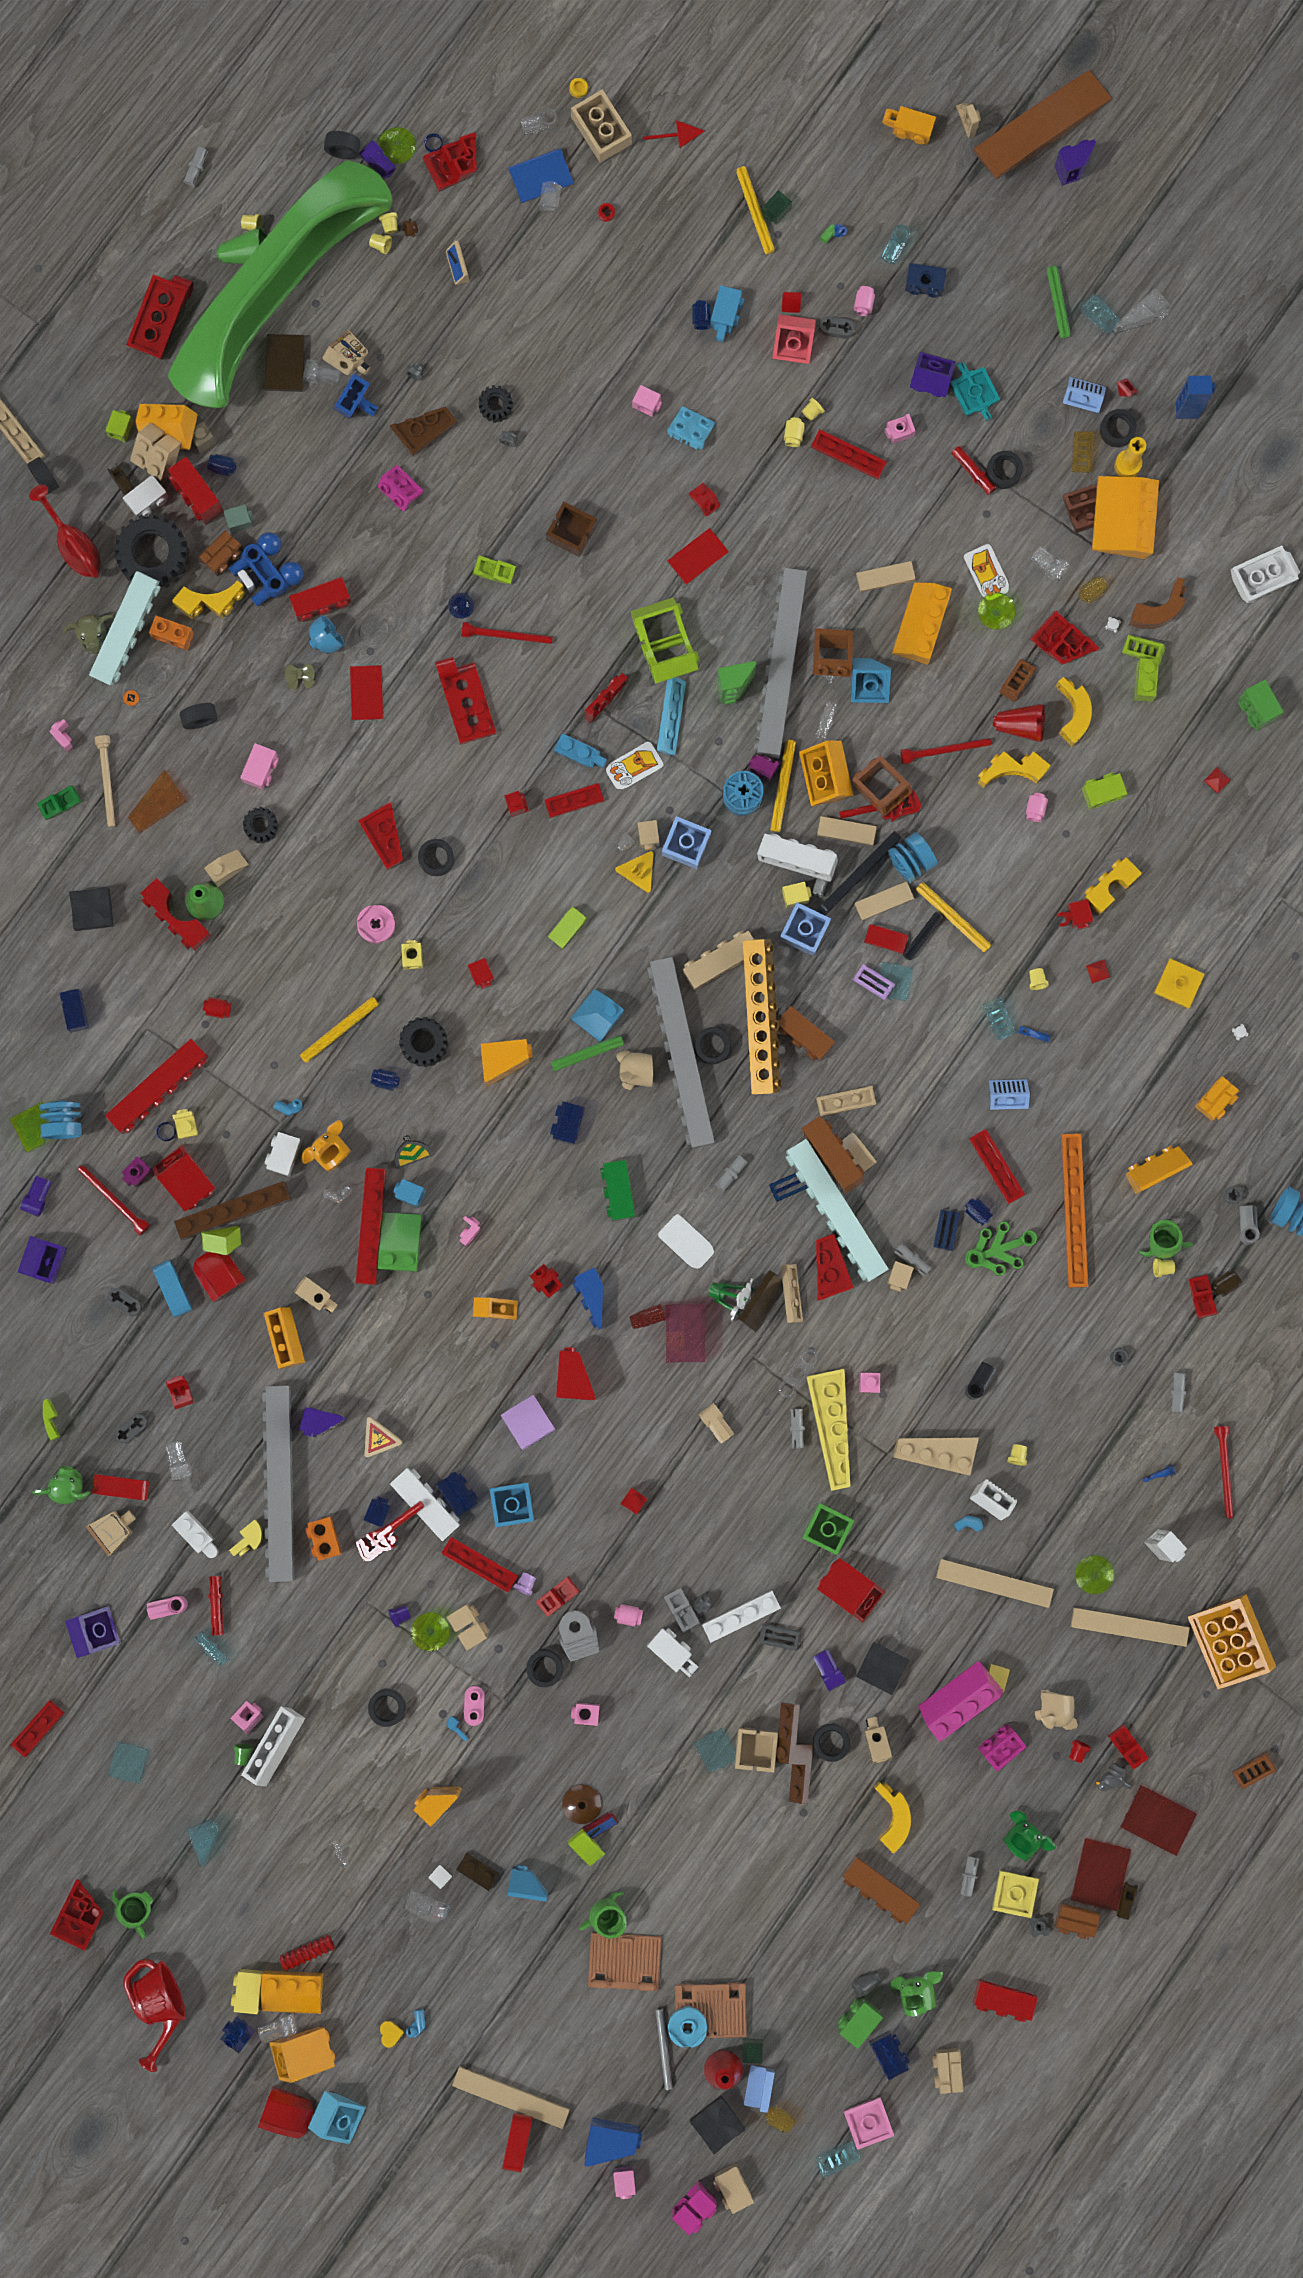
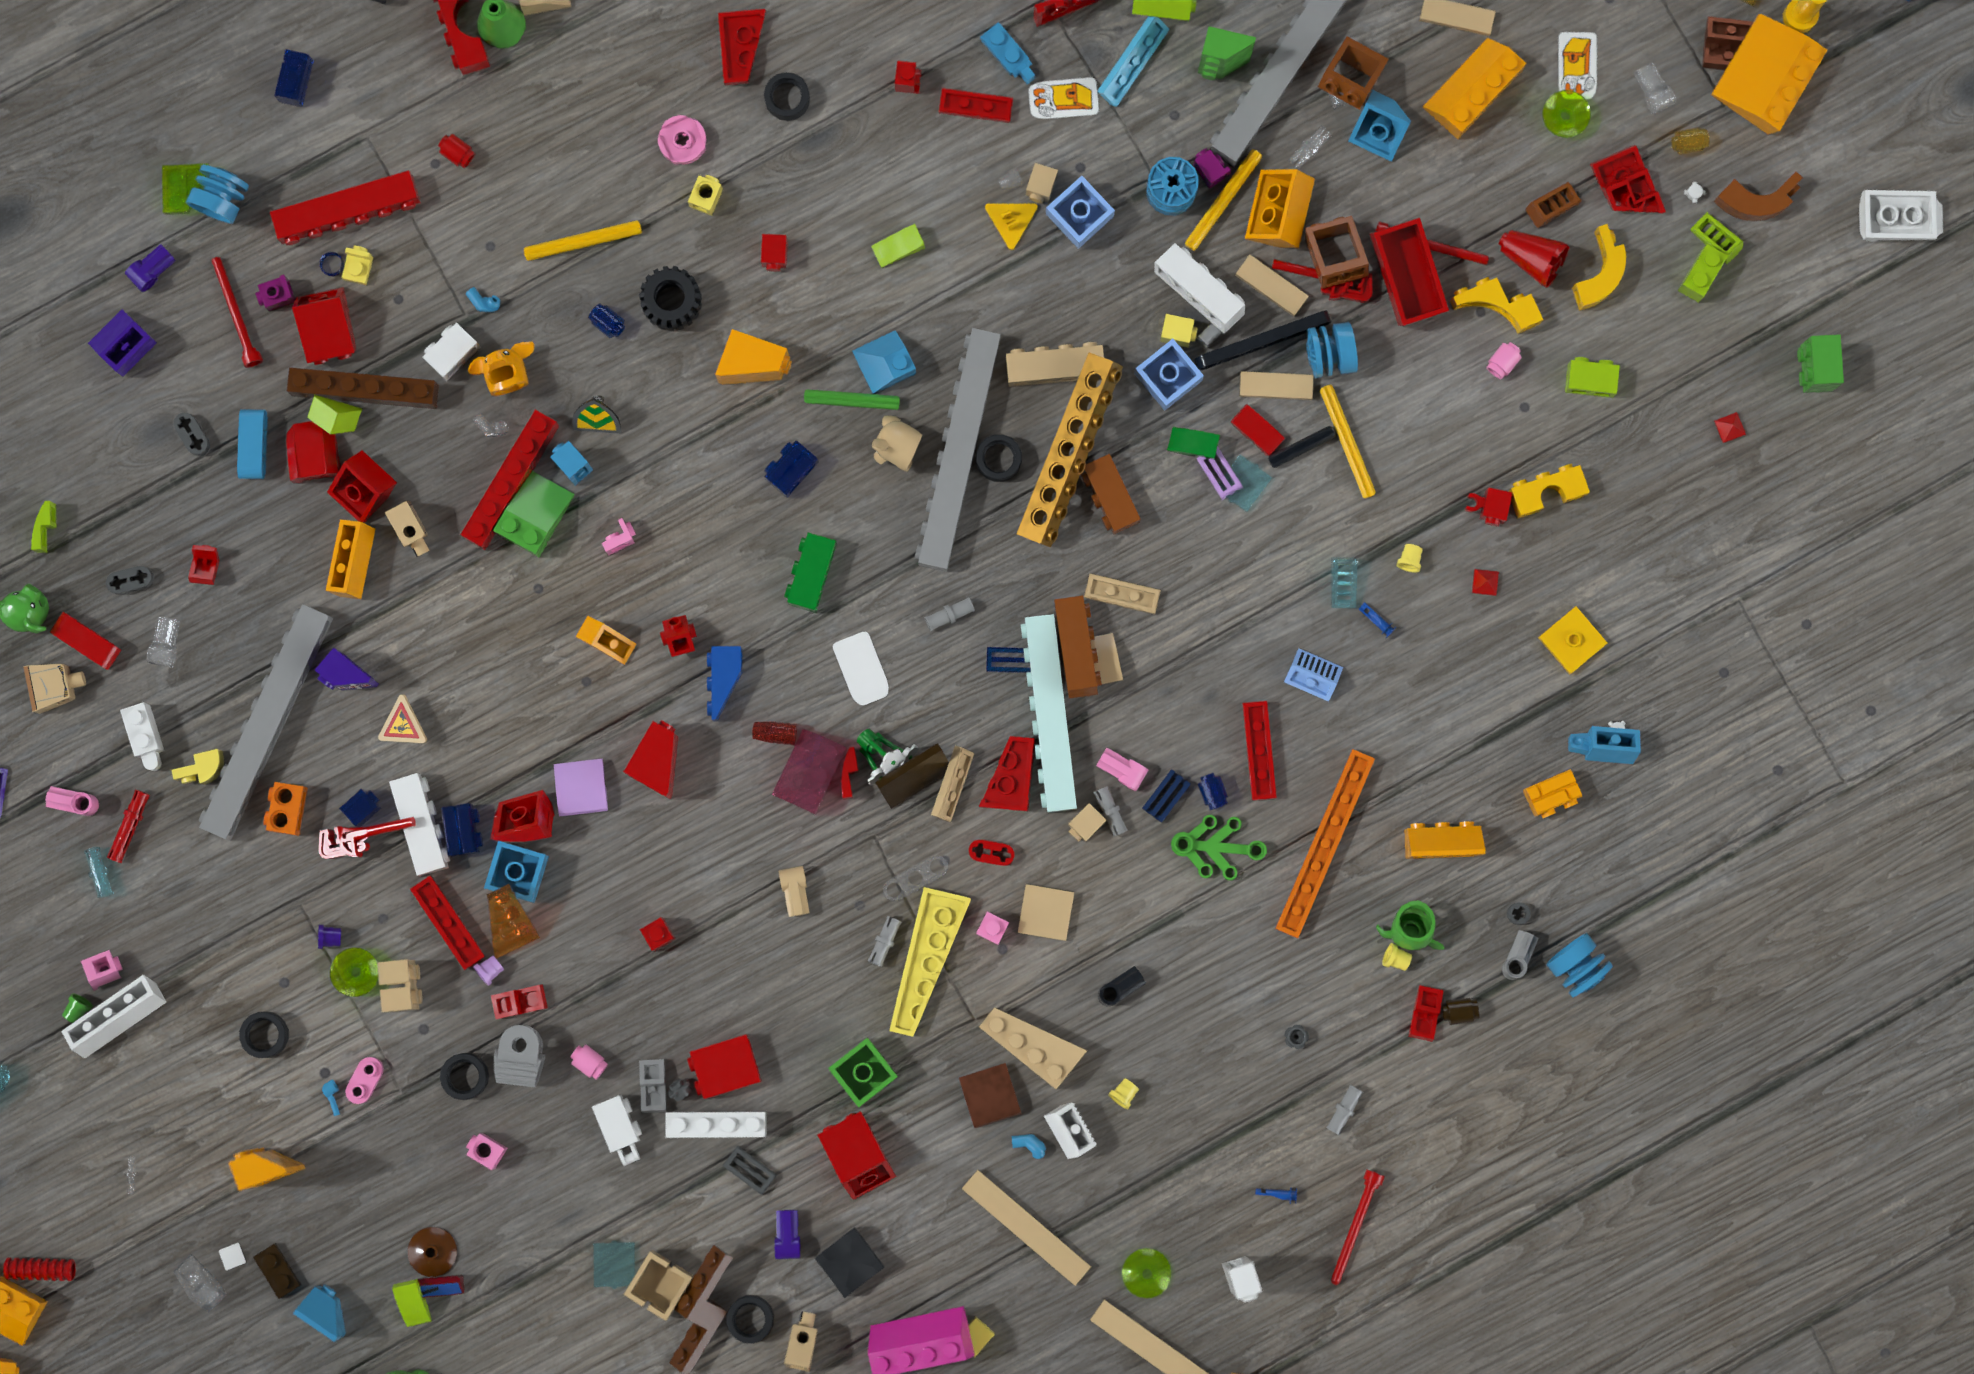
camera: 30 degrees right, 0 degrees up
(266, 1282) = (361, 486): none -> red slope
(498, 1464) = (523, 818): none -> red slope
(524, 1543) = (508, 922): none -> clear orange wing
(713, 1315) = (849, 767): none -> red slope
(726, 1572) = (724, 1067): none -> red brick
(840, 1324) = (992, 846): none -> red beam
(845, 969) = (1193, 442): none -> green slope
(901, 1353) = (1045, 912): none -> tan tile
(909, 1225) = (1126, 771): none -> bright pink piece
(924, 1502) = (990, 1095): none -> copper slope
(940, 776) = (1409, 272): none -> red piece
(1239, 1046) = (1607, 744): none -> dark azure hinge

